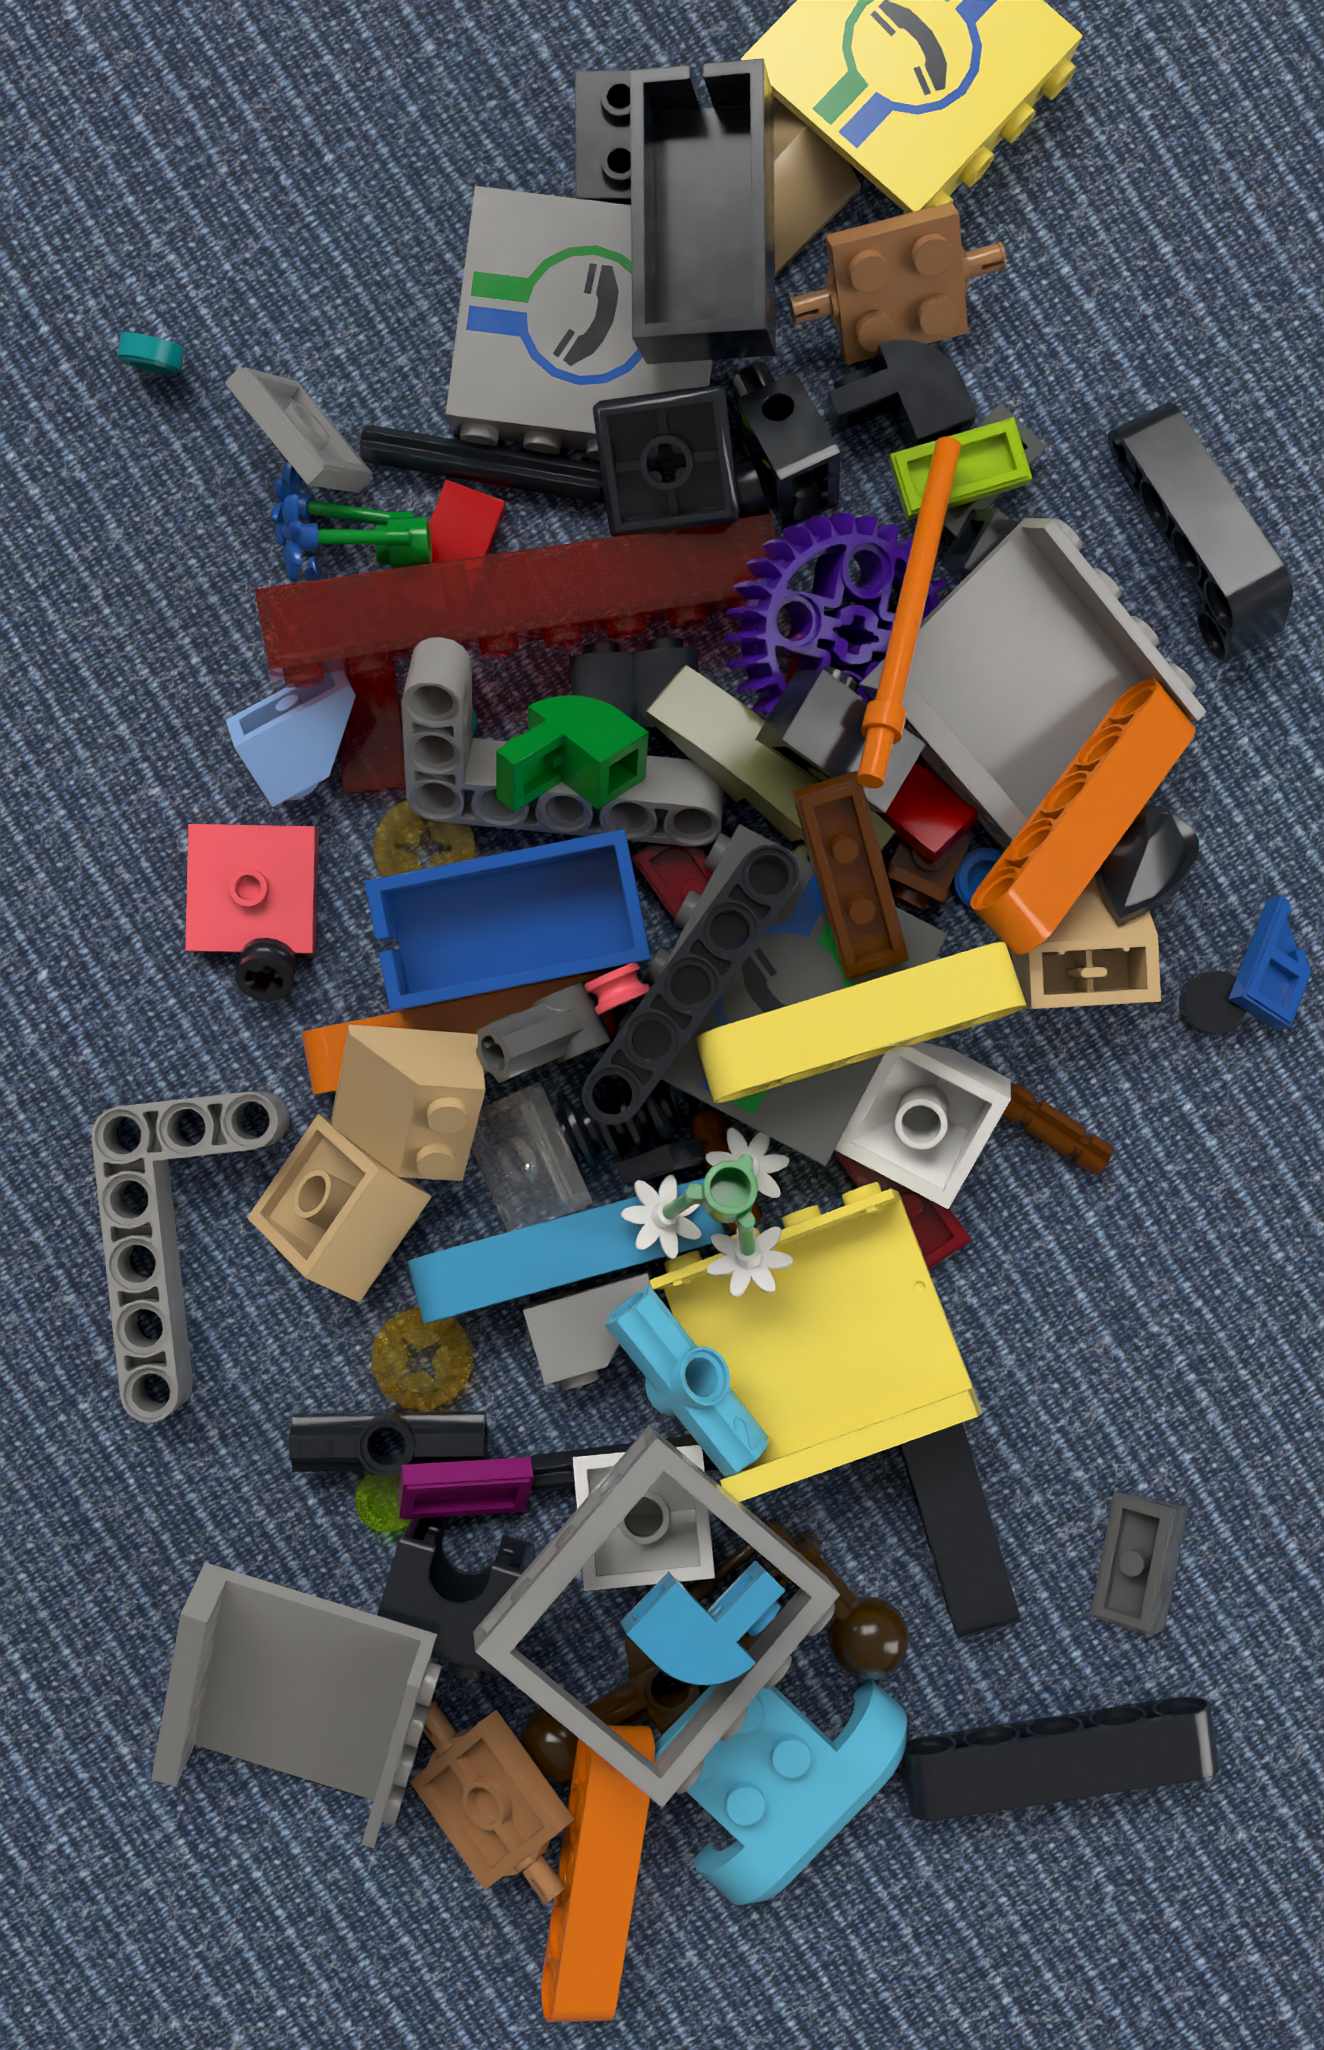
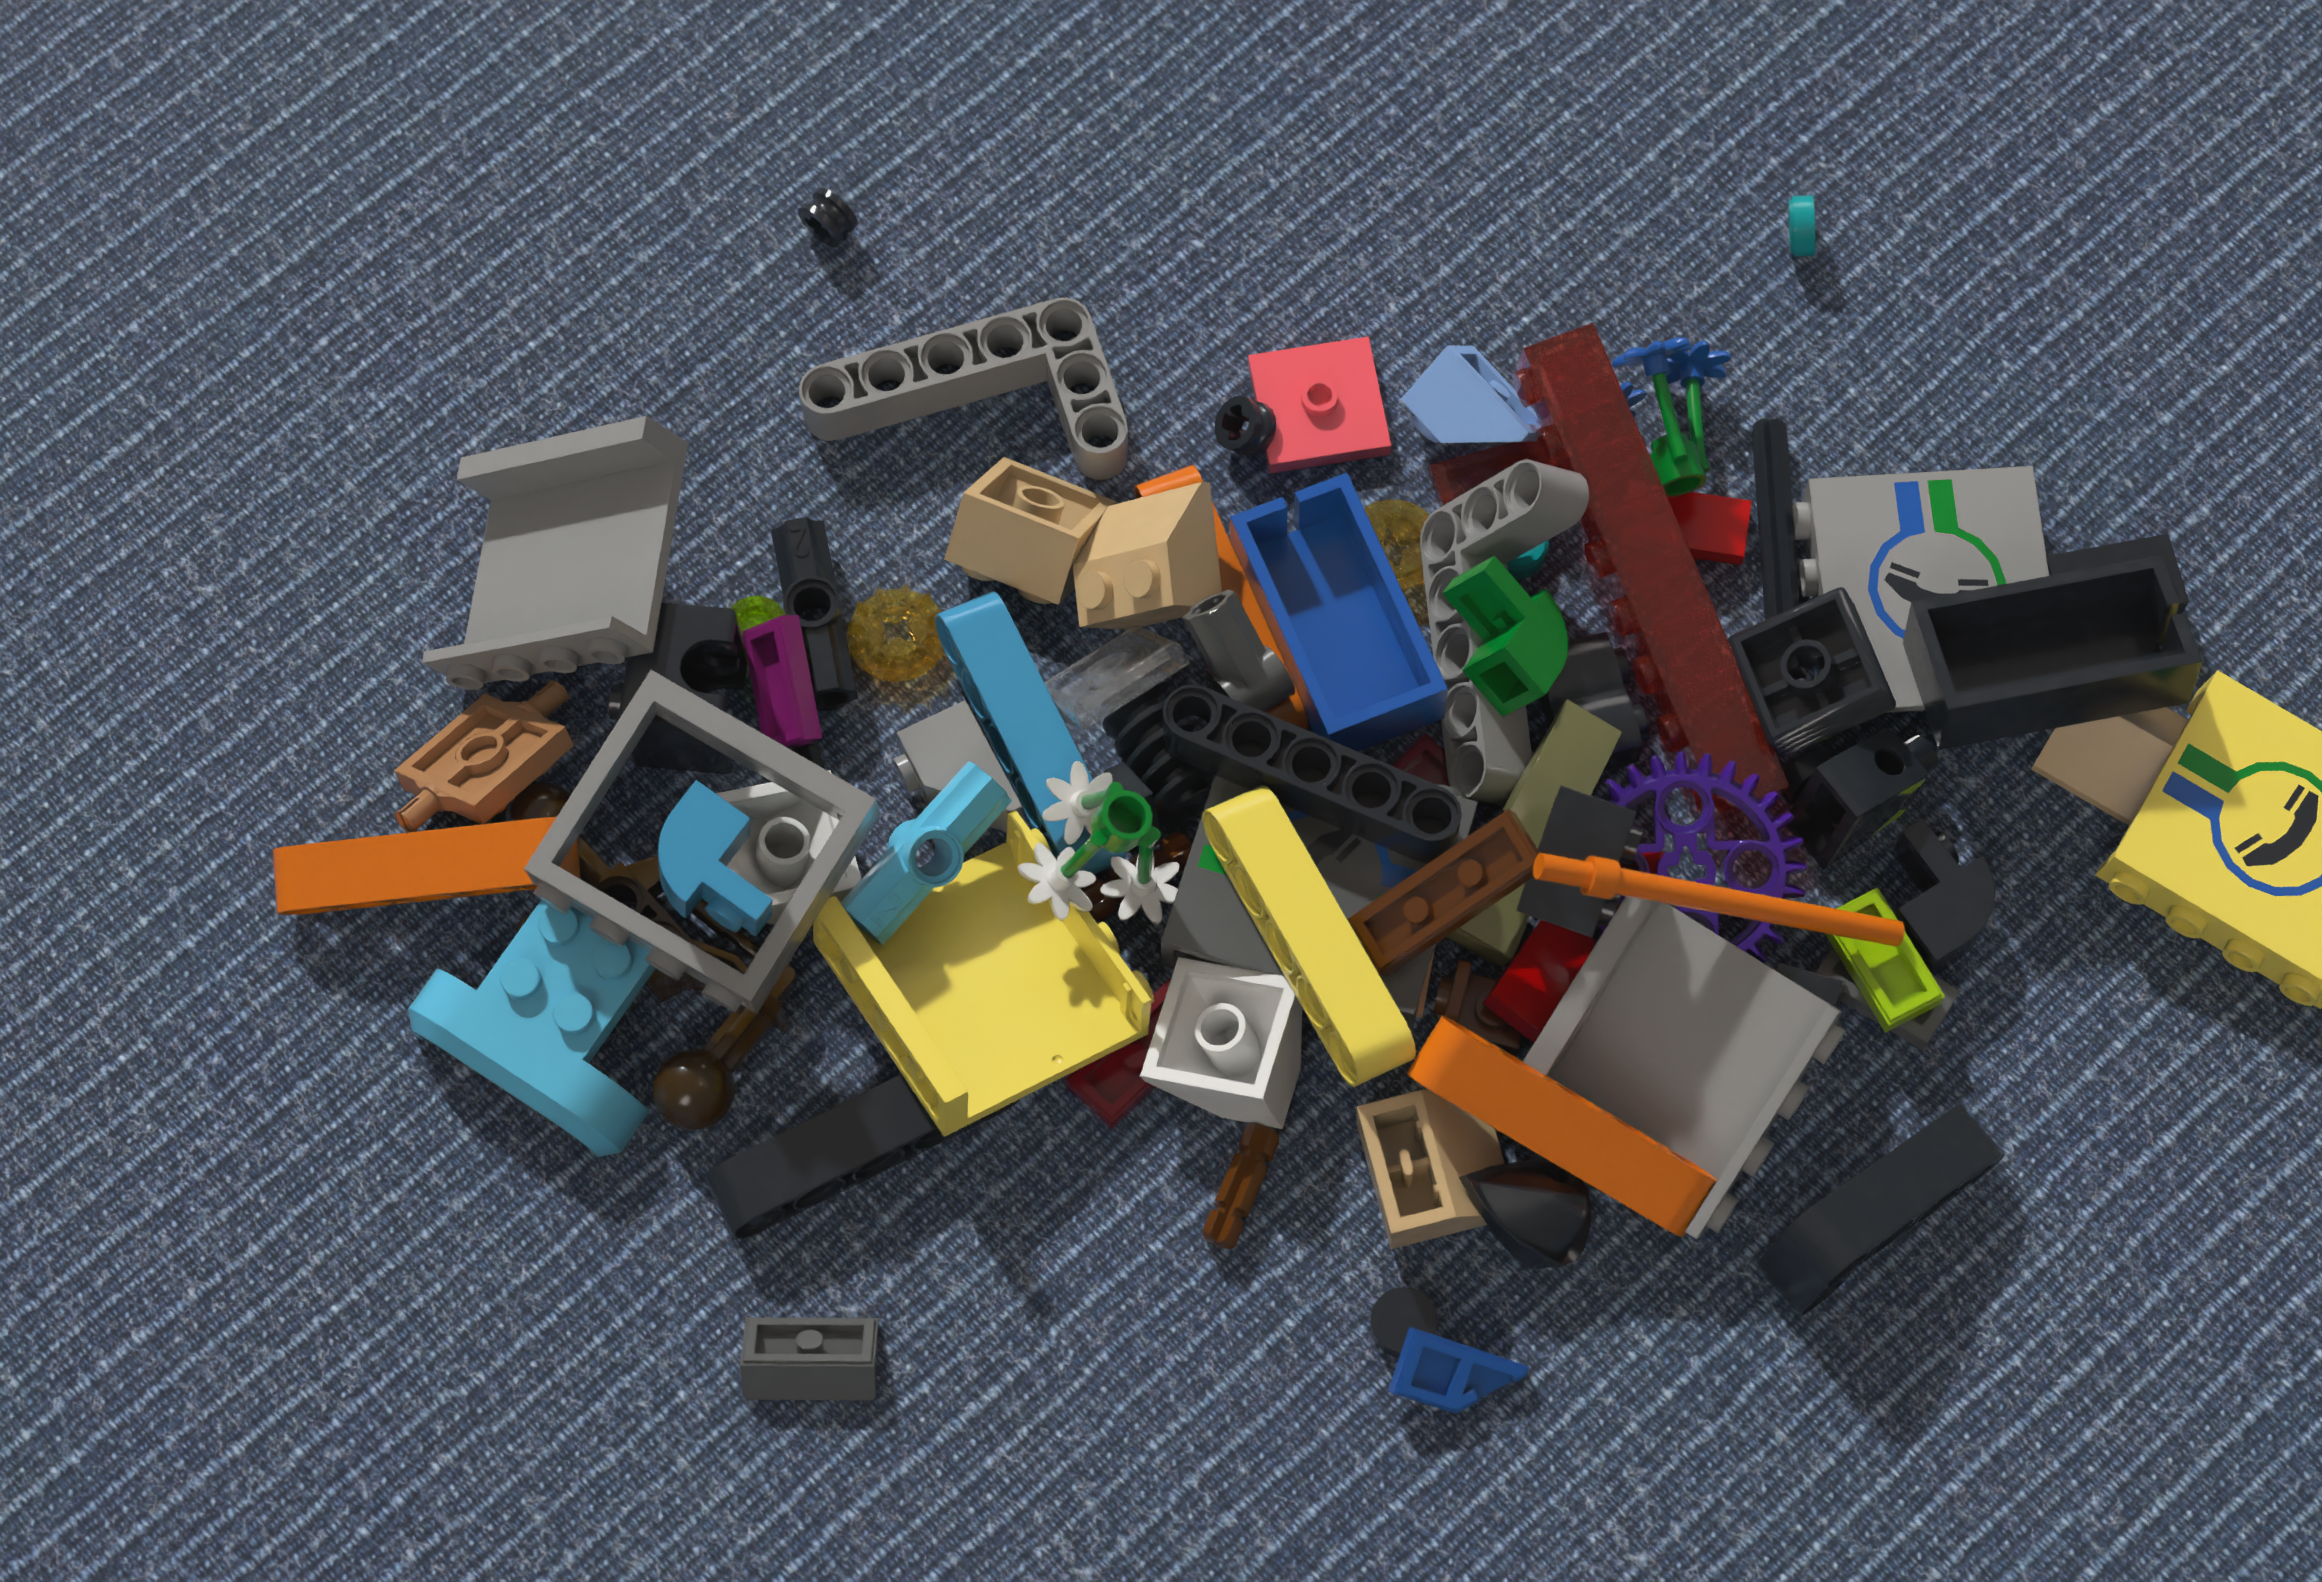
camera: 75 degrees right, 20 degrees down
(300, 430) = (1759, 357): light grey plate -> none
(617, 988) = (1295, 708): coral bush -> none
(897, 281) = (2049, 866): medium nougat plate -> none
(1060, 1758) = (599, 1305): black beam -> none

